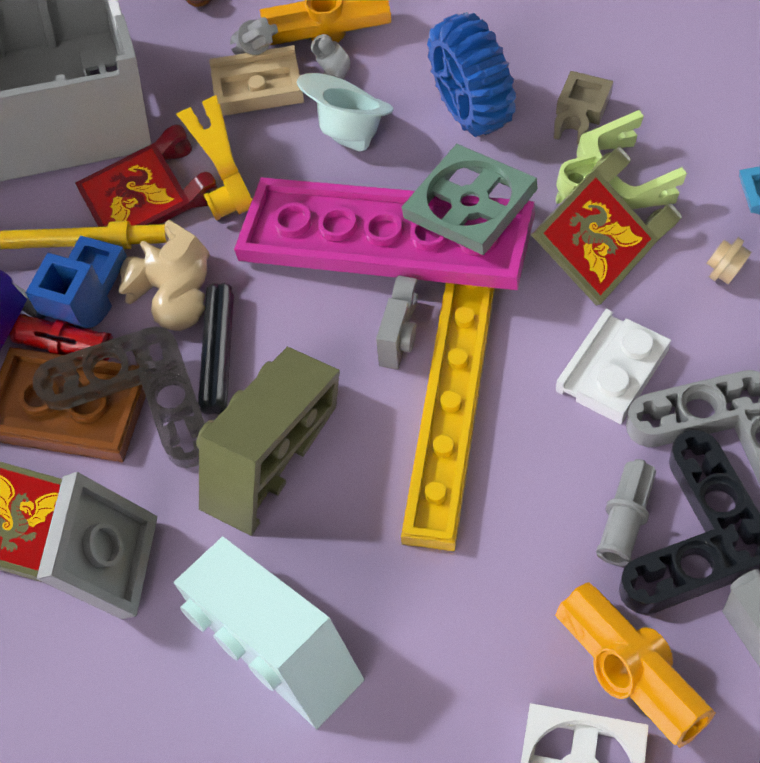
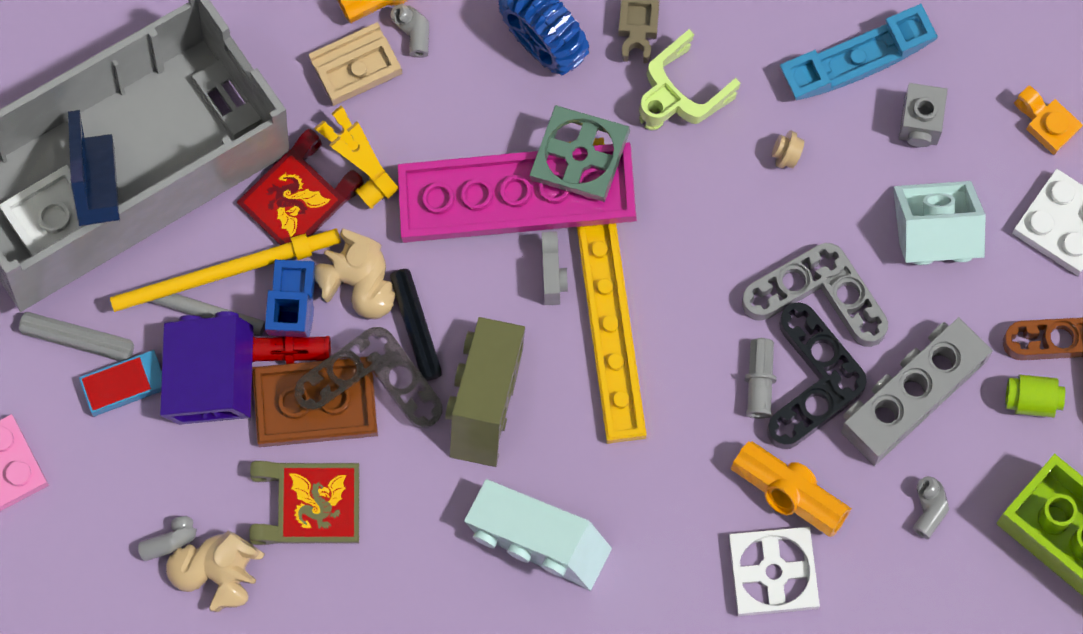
camera: 20 degrees left, 15 degrees up
(97, 546) = (397, 510): light grey tile -> none
(253, 37) = (342, 27): light grey axle -> none
(344, 109) = (447, 79): light aqua piece -> none
(598, 233) = (685, 151): flag -> none
(613, 366) = (722, 261): white plate -> none

